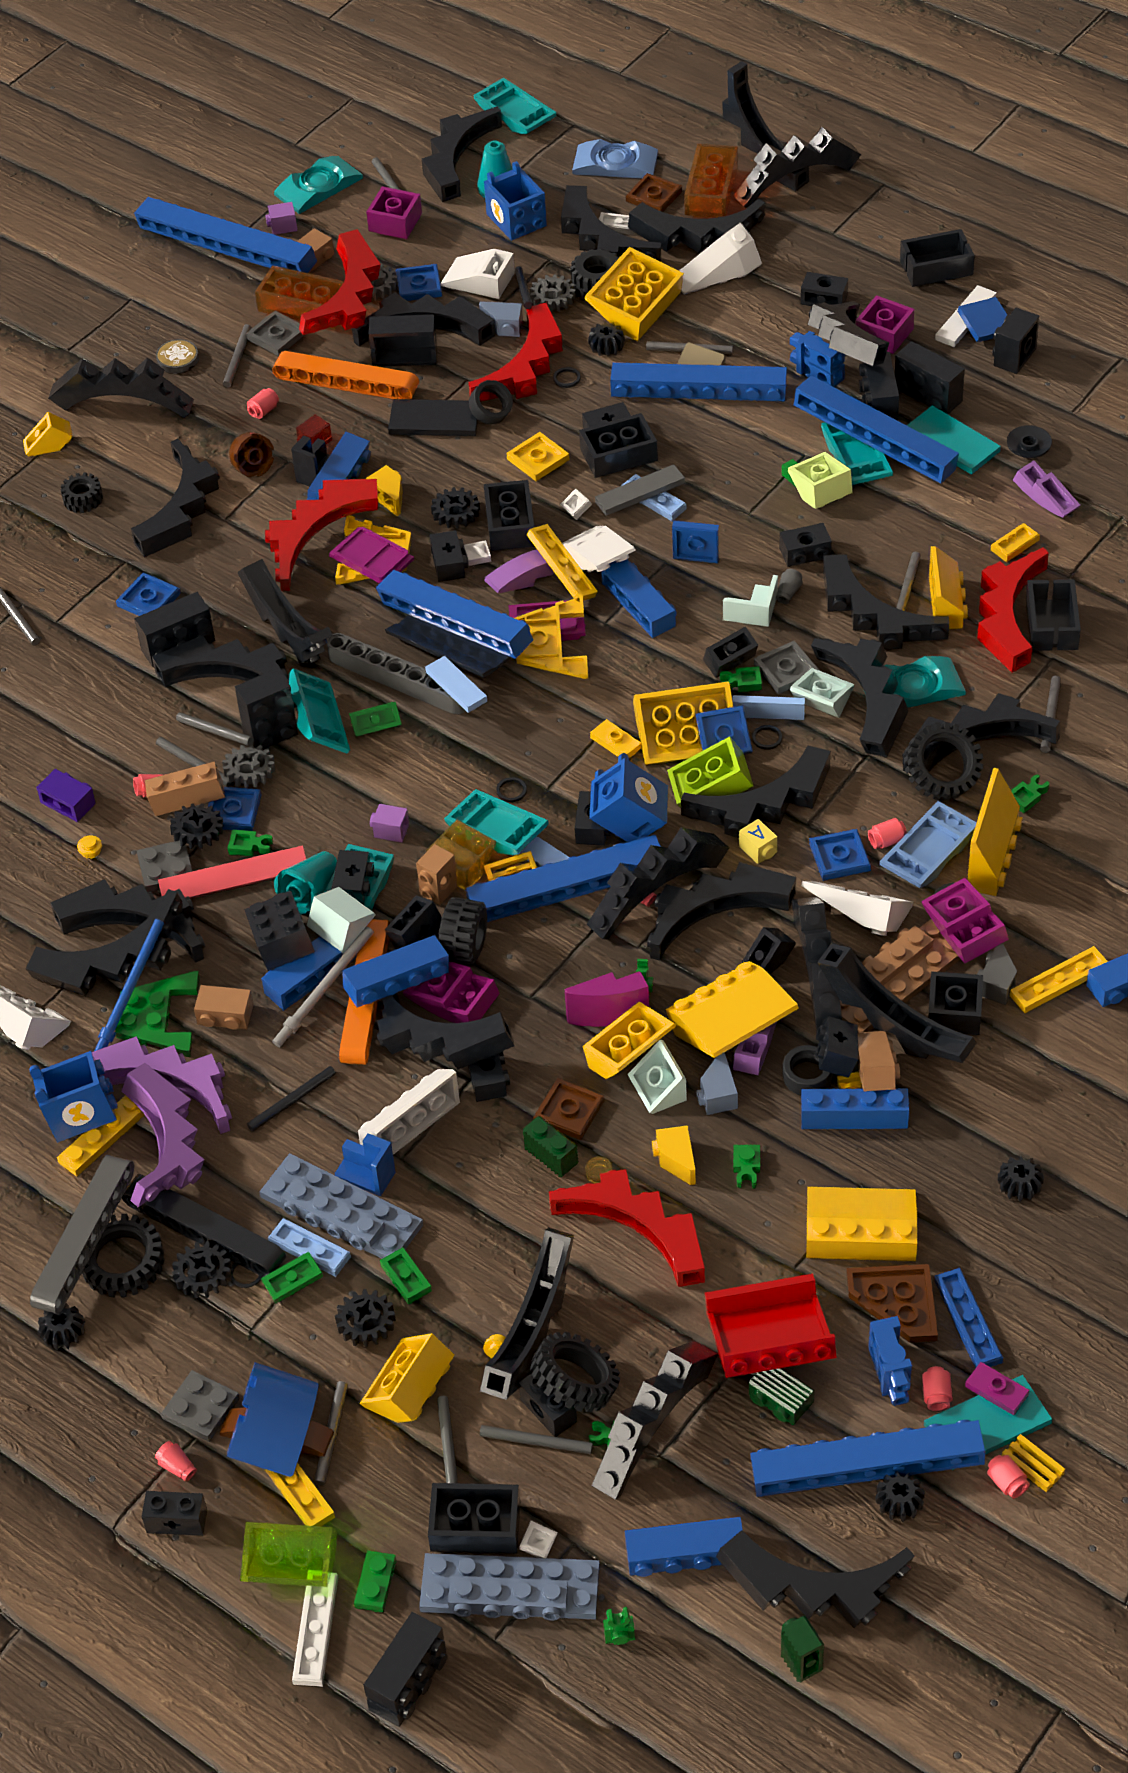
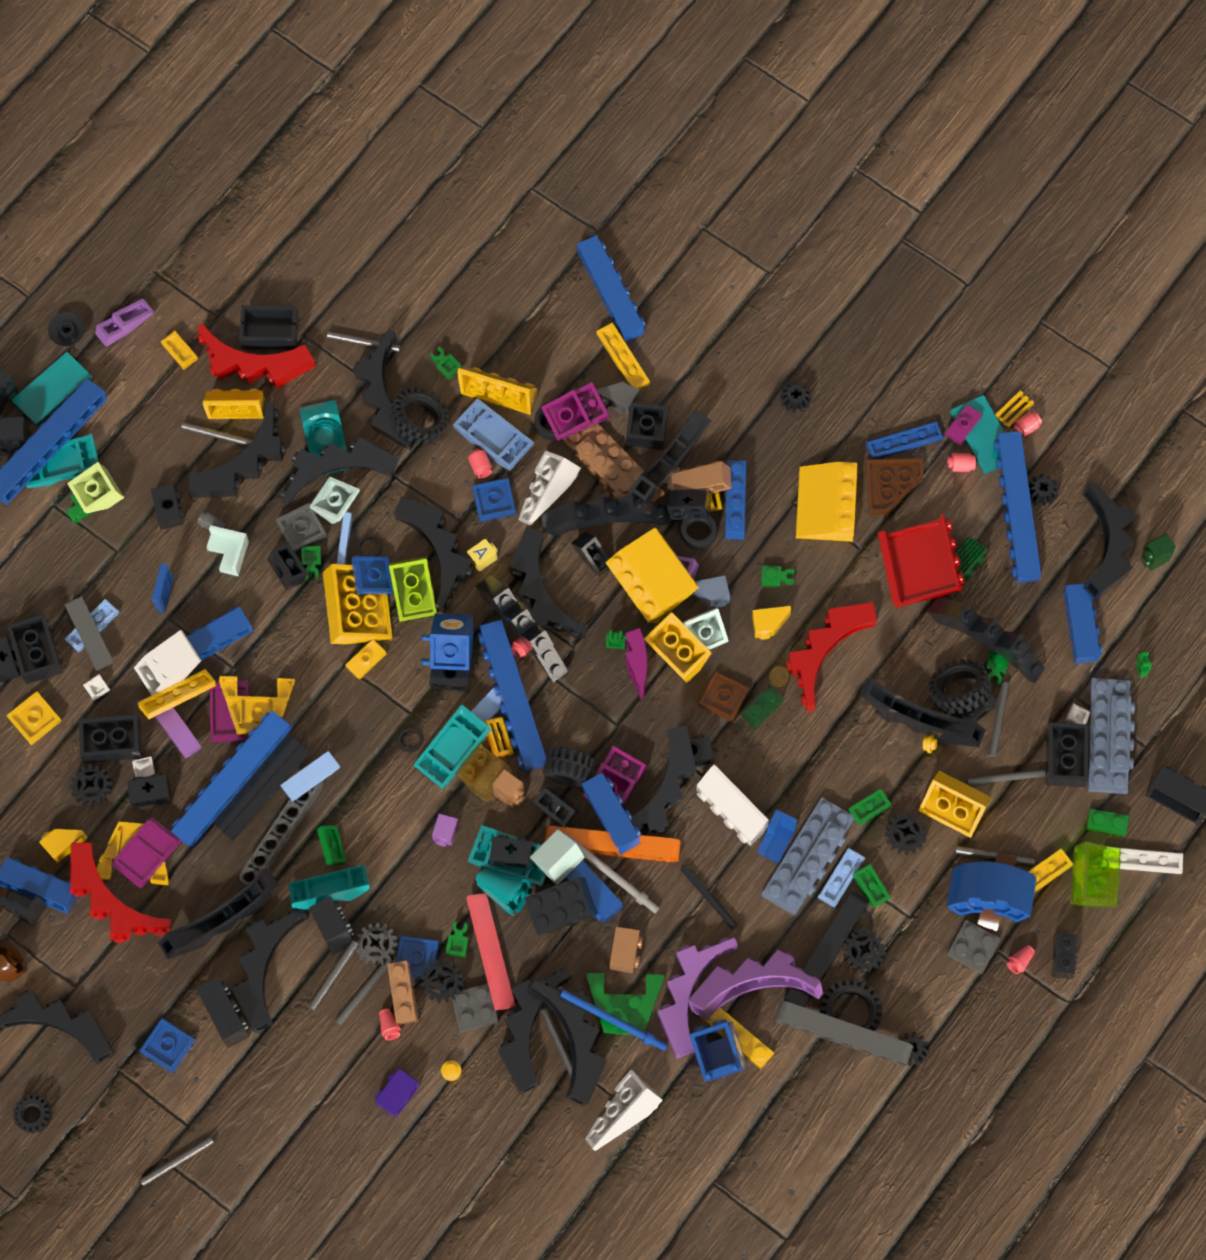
camera: 90 degrees left, 20 degrees up
(890, 1359) = (946, 487): blue hips -> none

